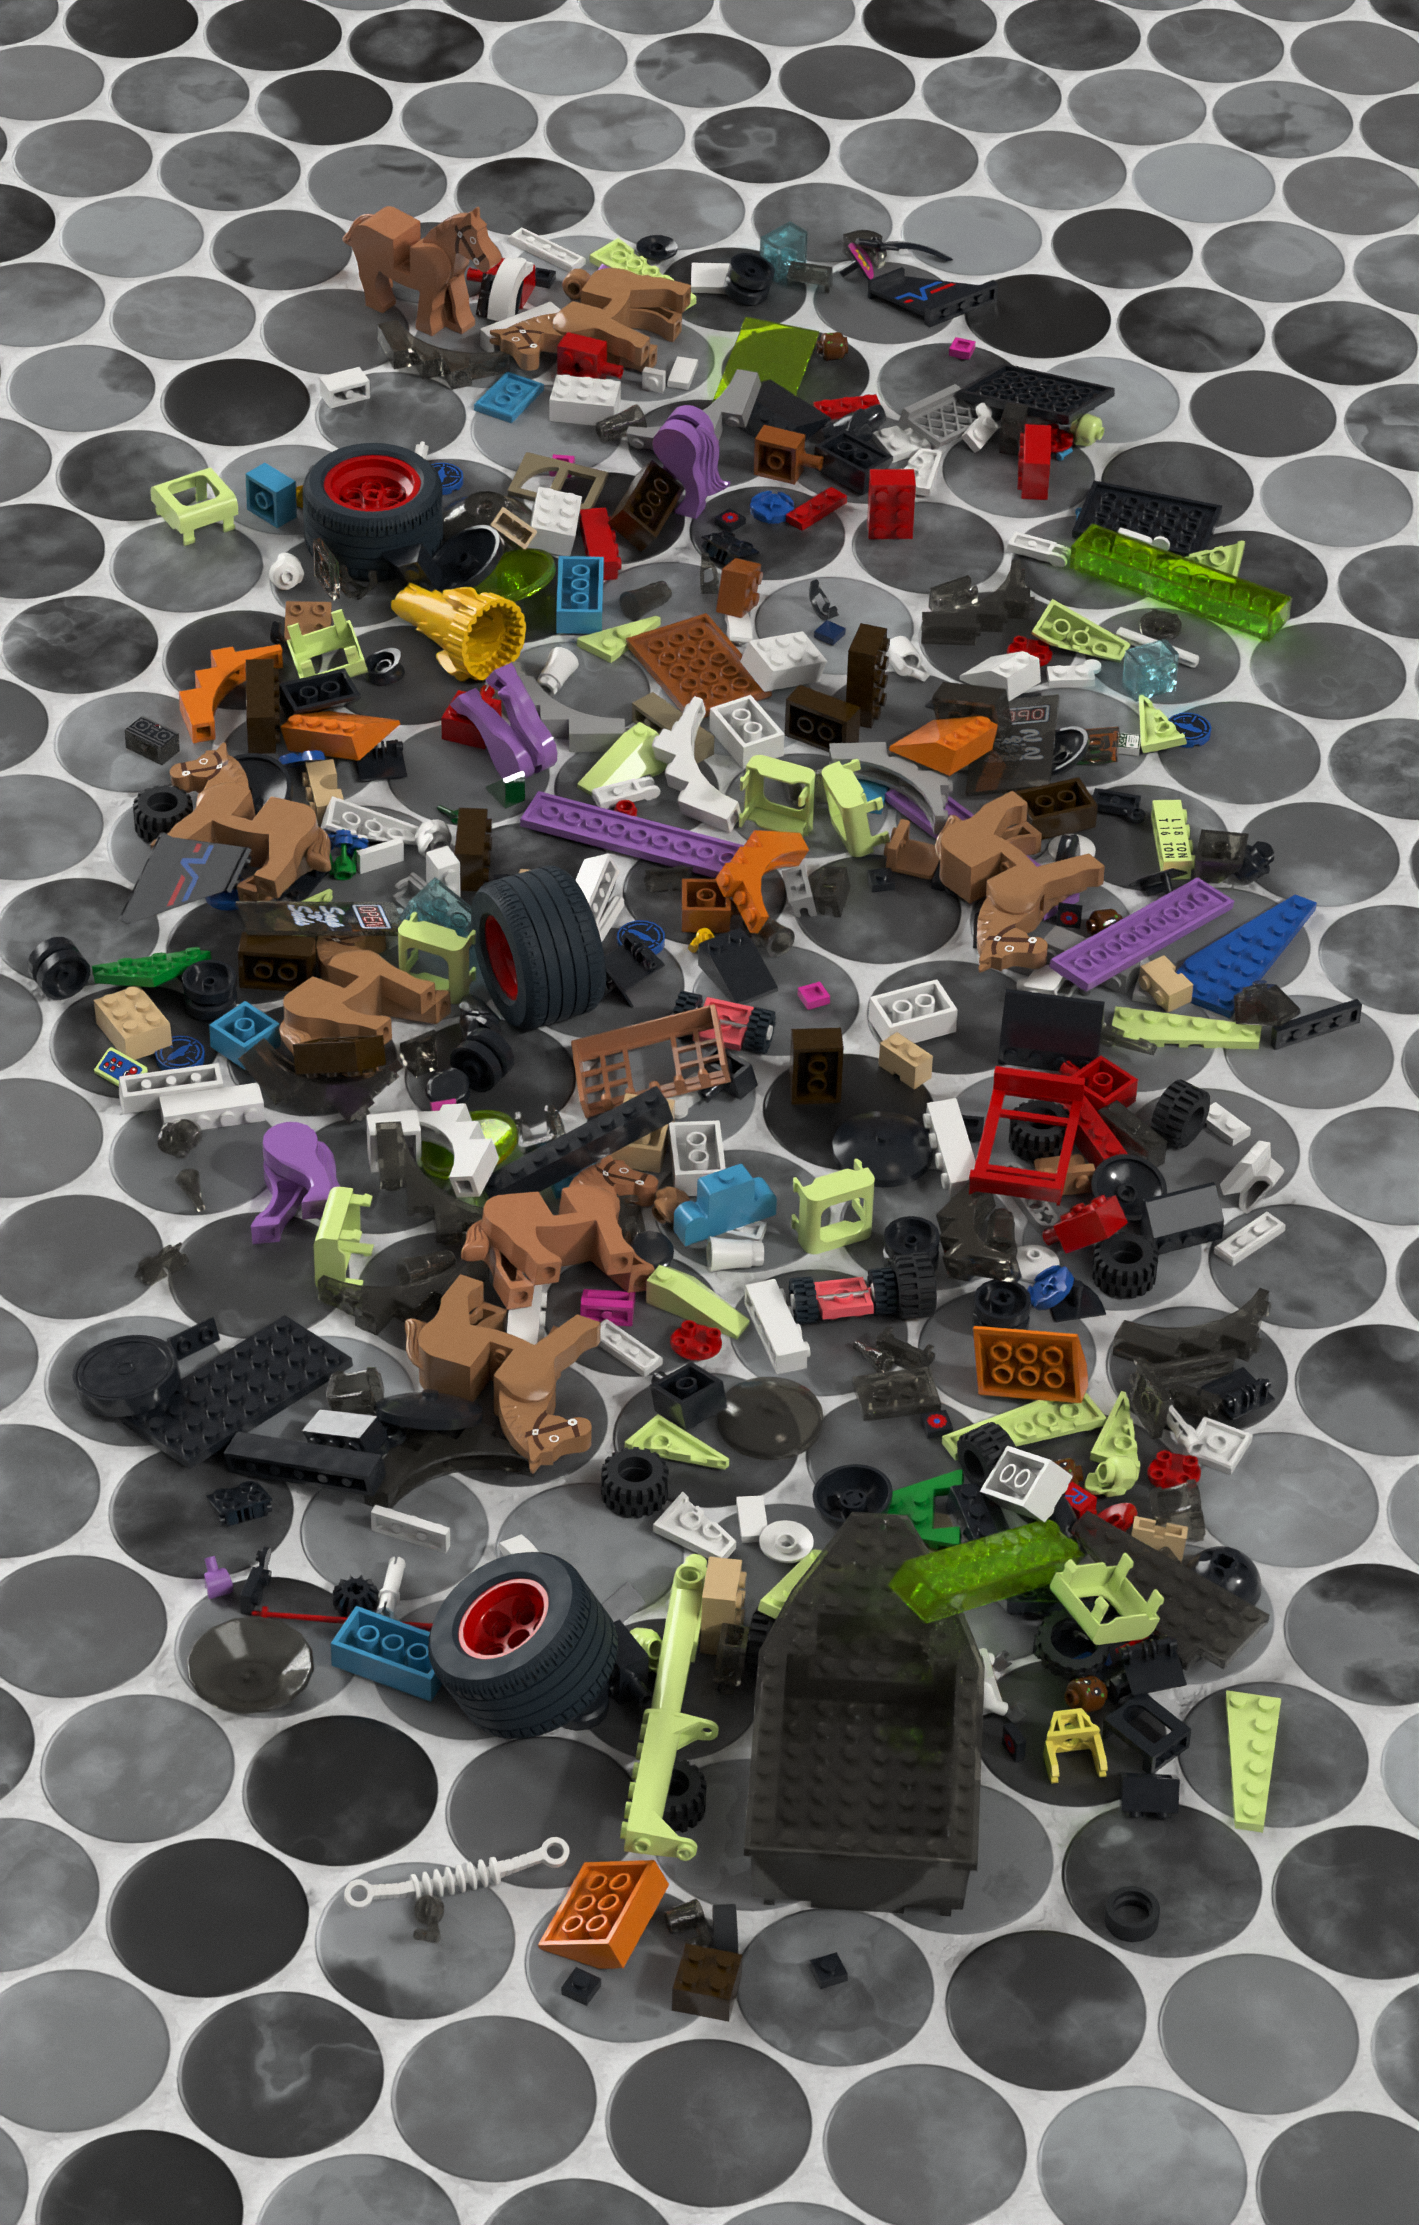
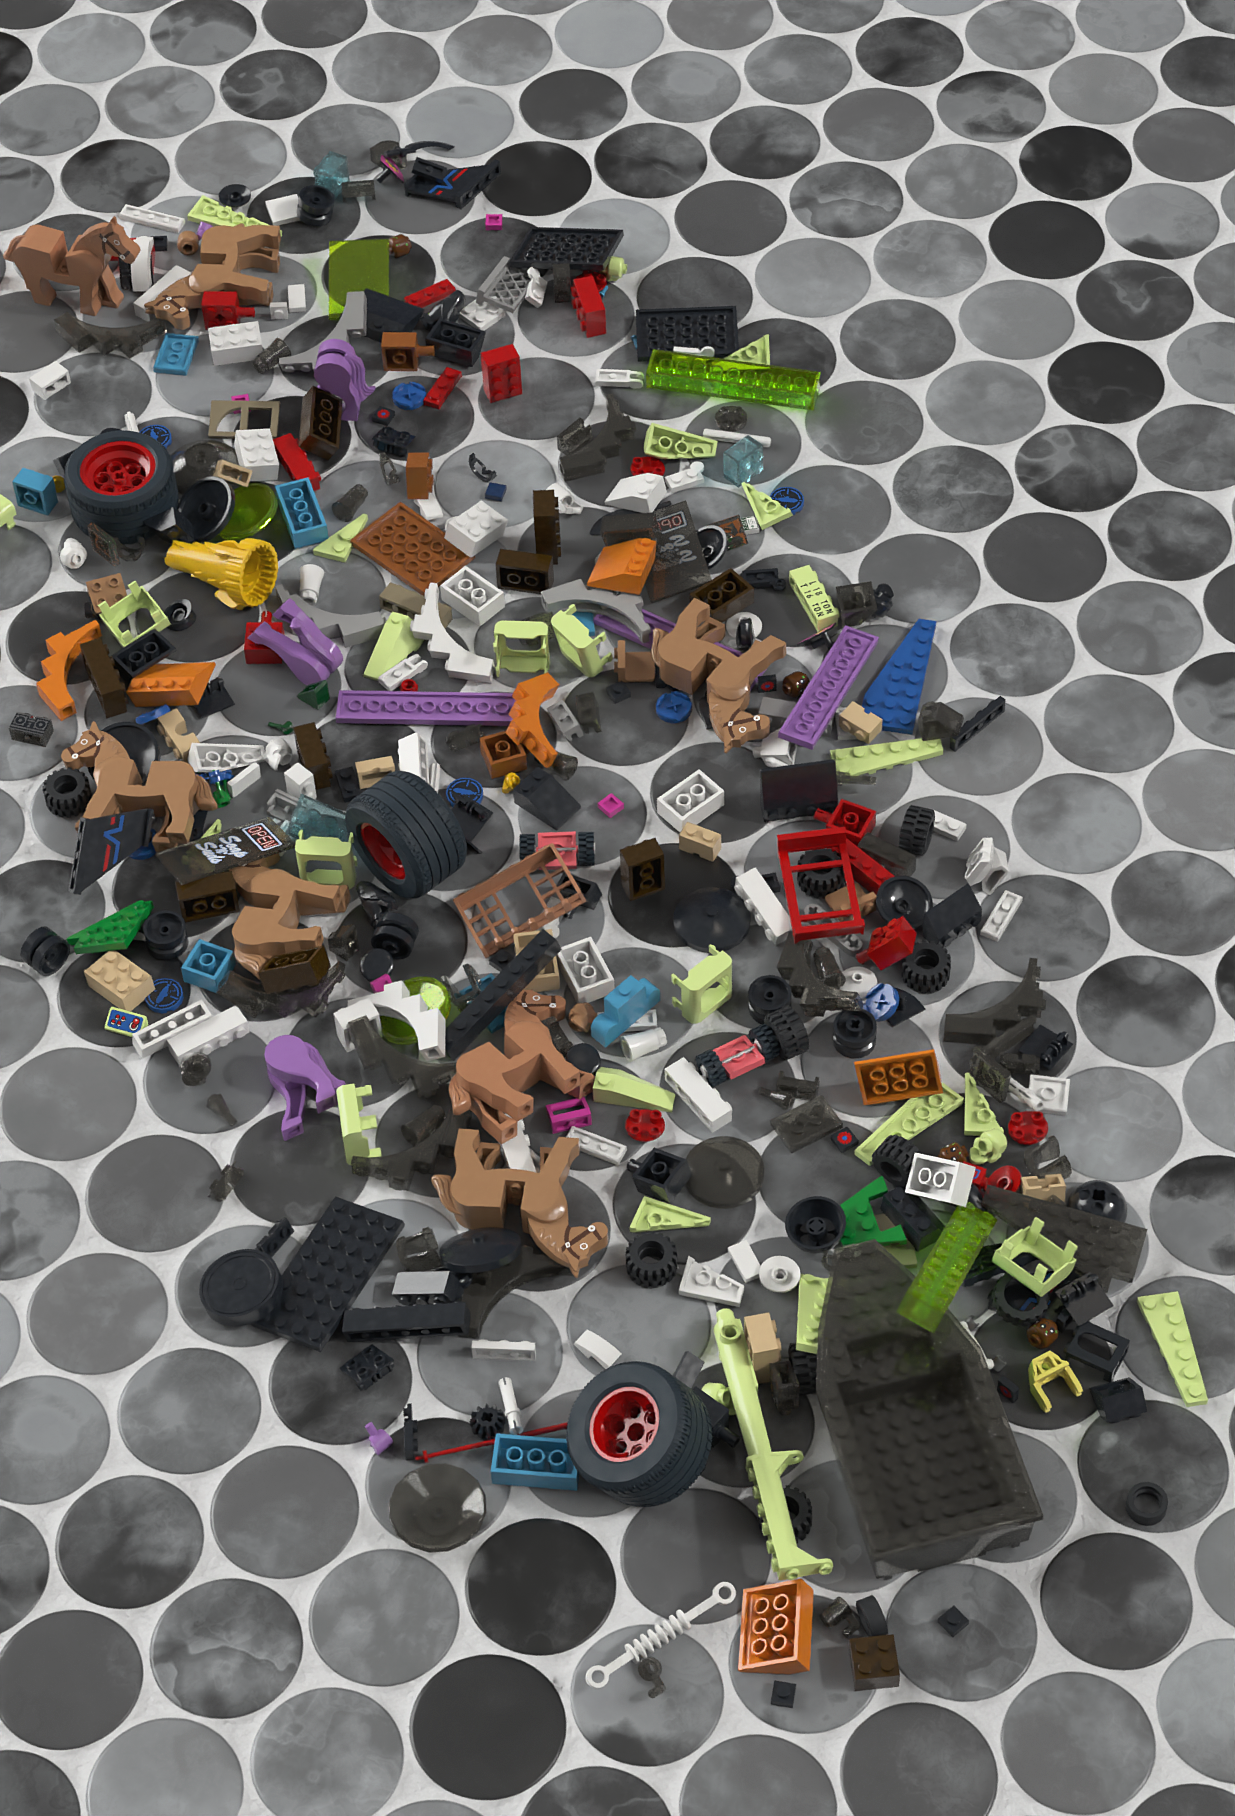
camera: 15 degrees left, 10 degrees up
(904, 272) = (429, 170): none -> black plate
(925, 465) = (506, 333): white wing -> none
(942, 913) = (673, 707): none -> blue tile

